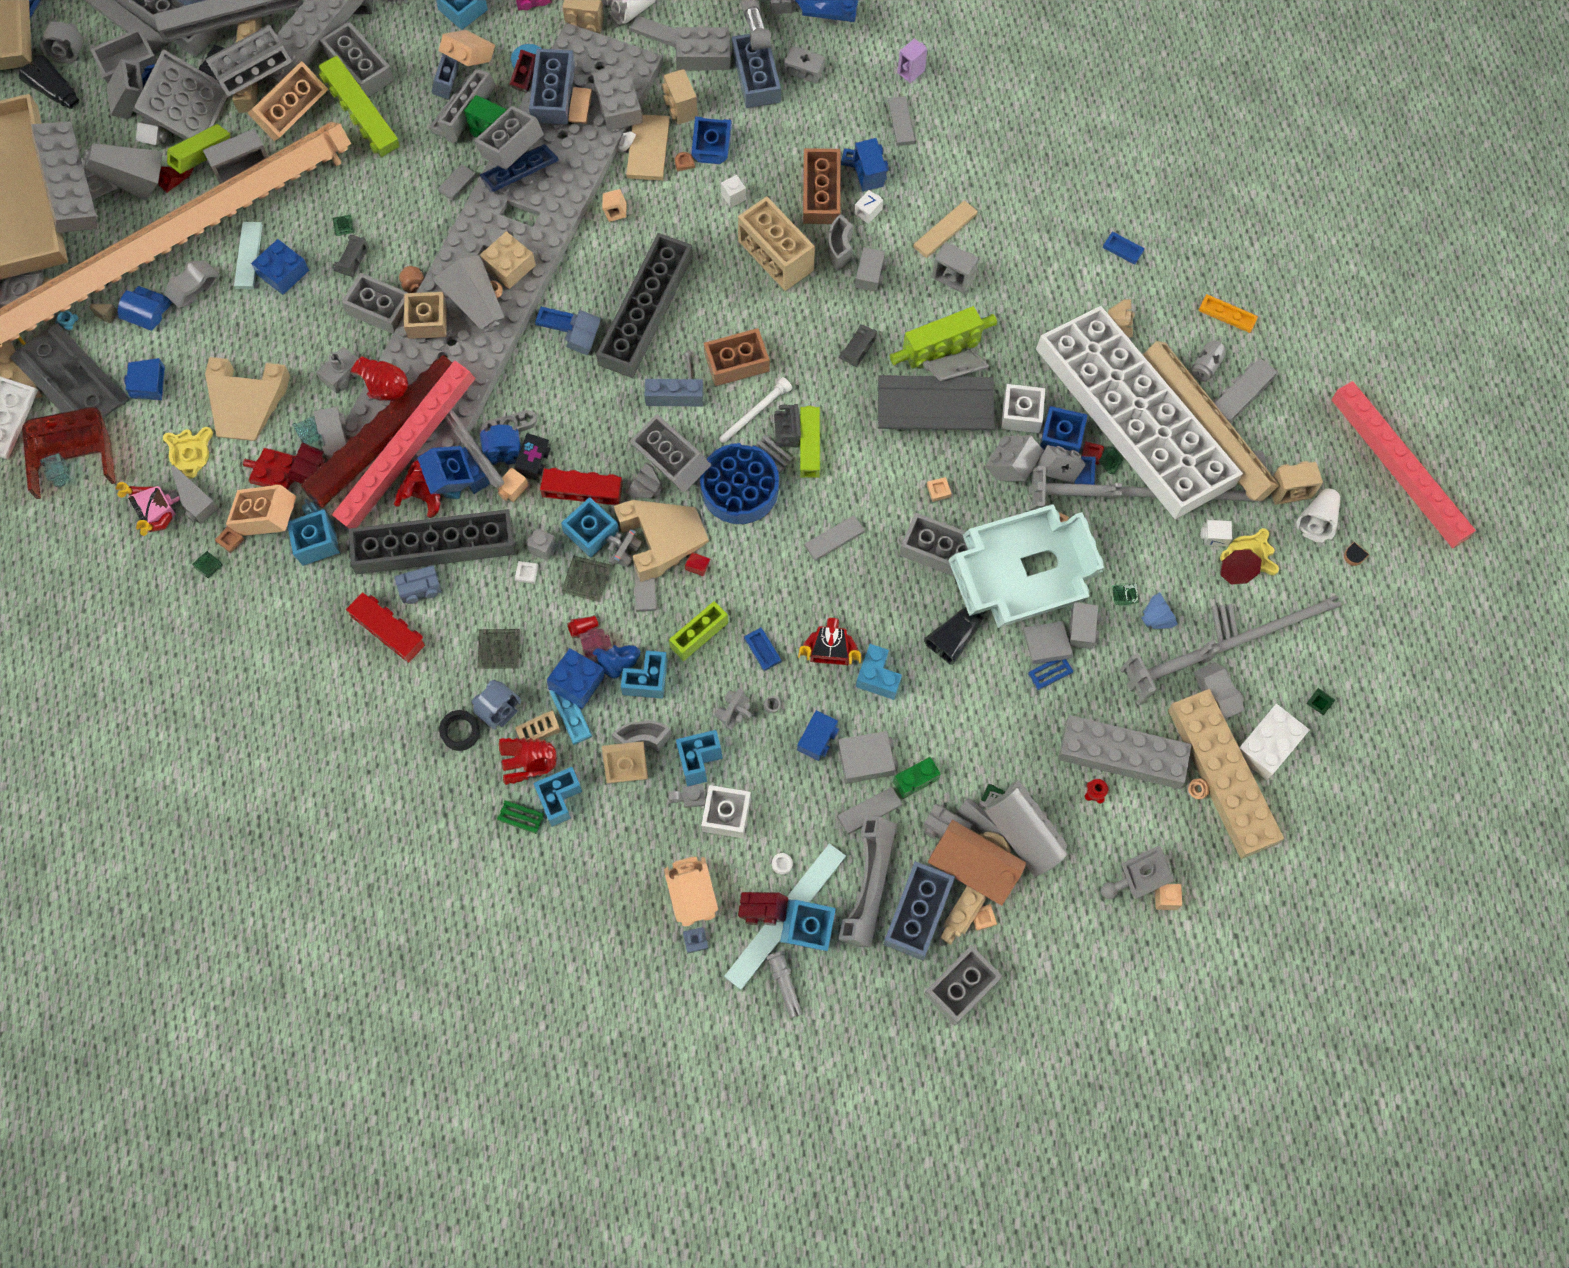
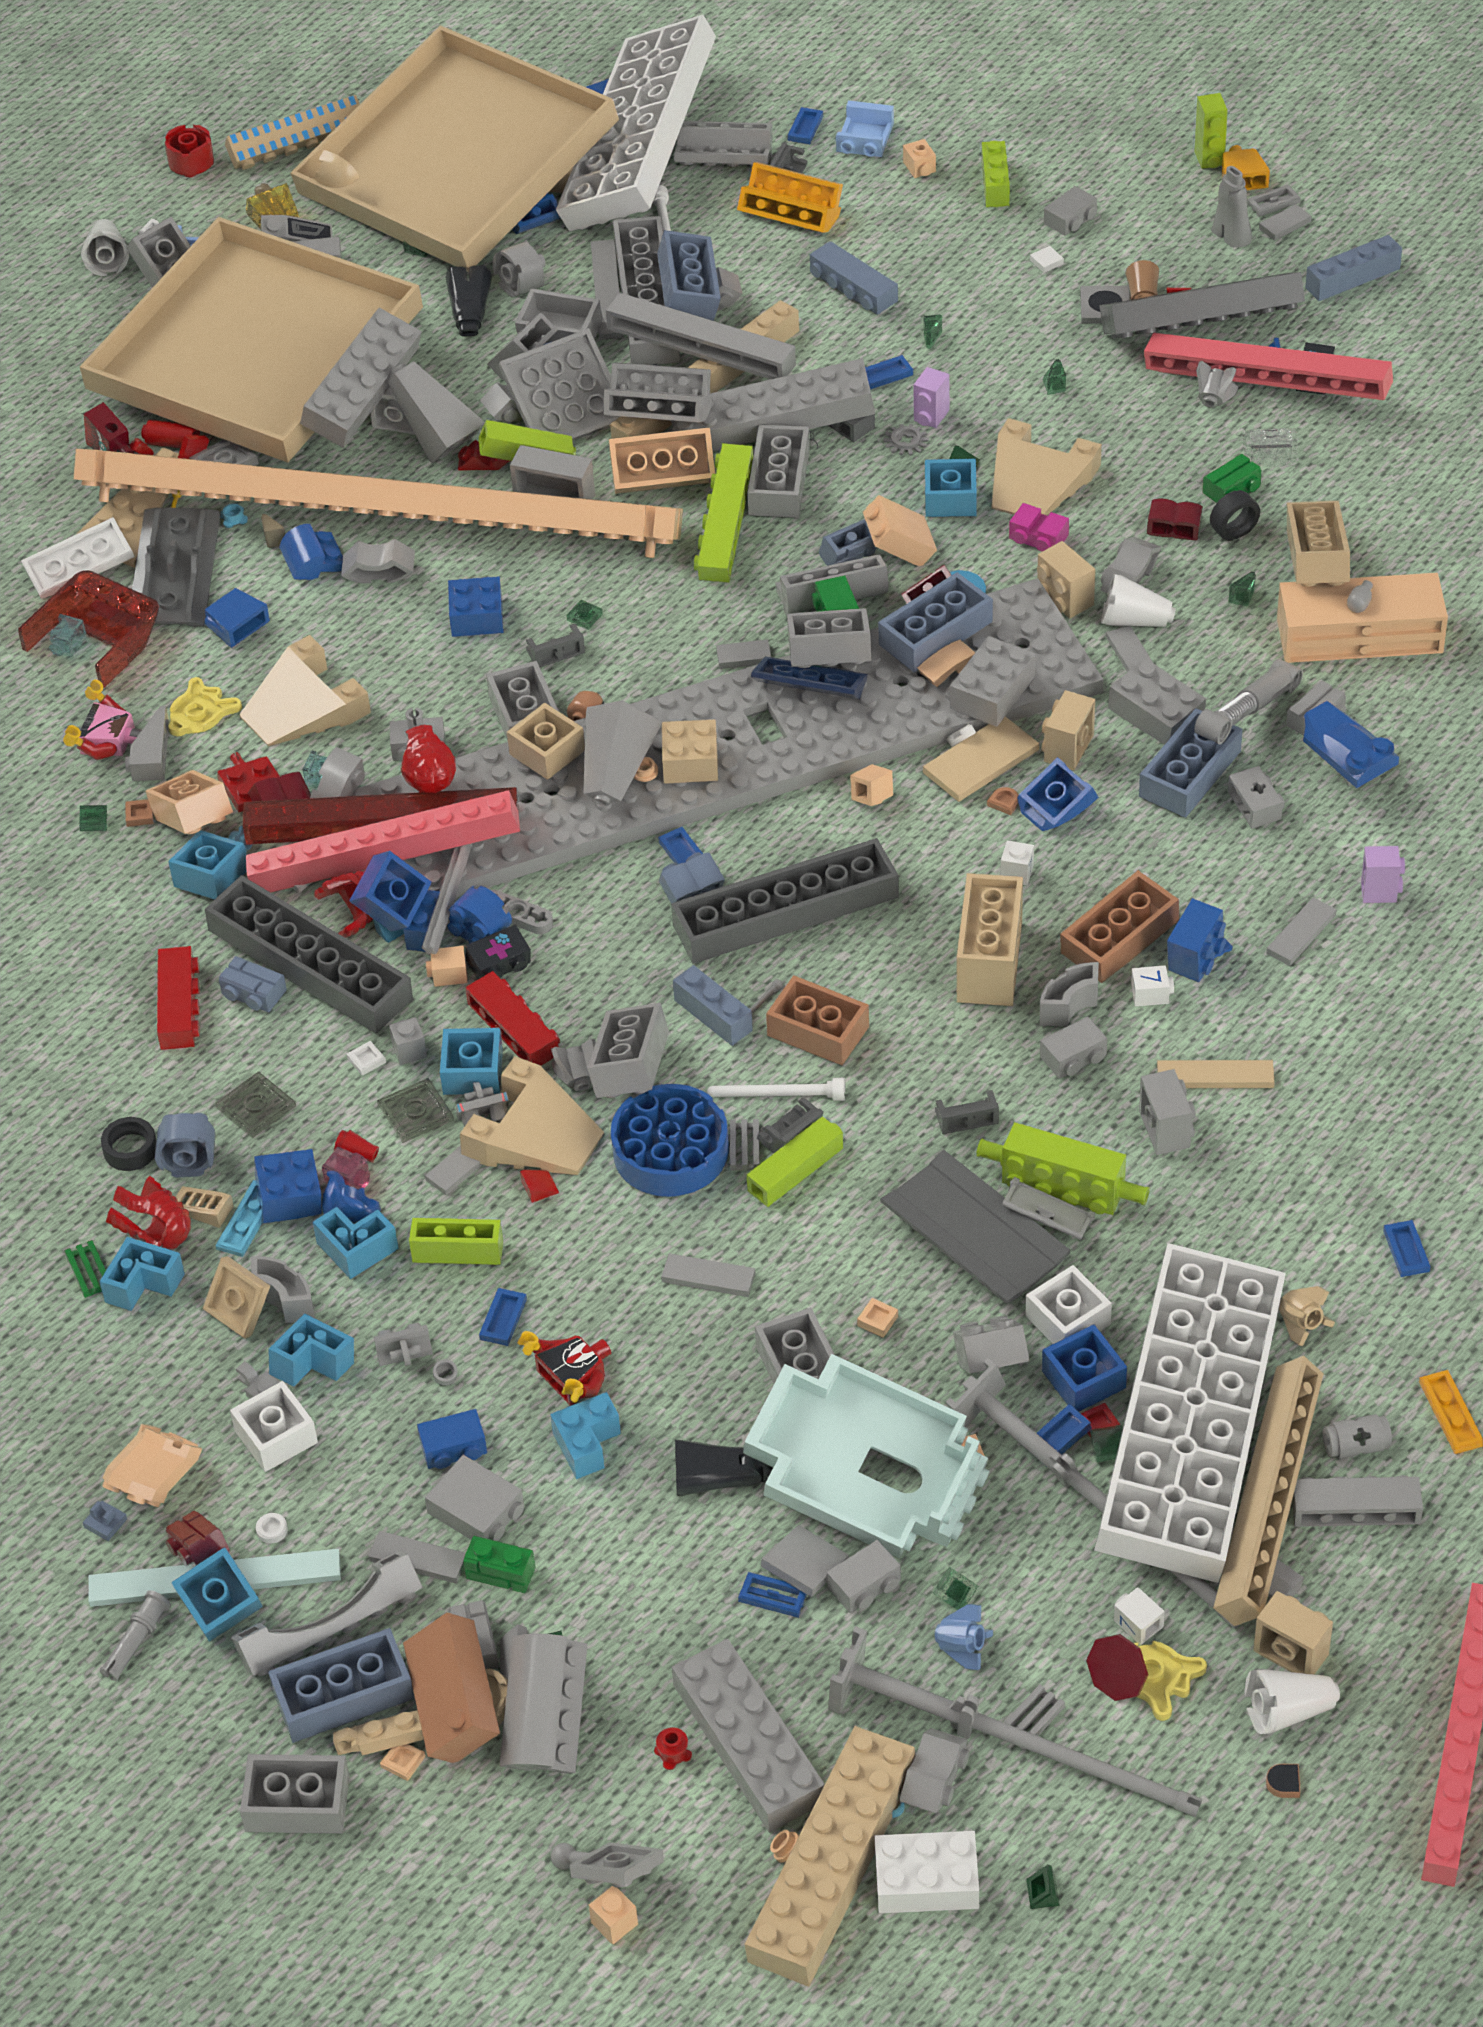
camera: 50 degrees right, 20 degrees down
(248, 252) = (478, 566): light aqua tile -> none
(1061, 463) = (1035, 1392): light grey brick -> none

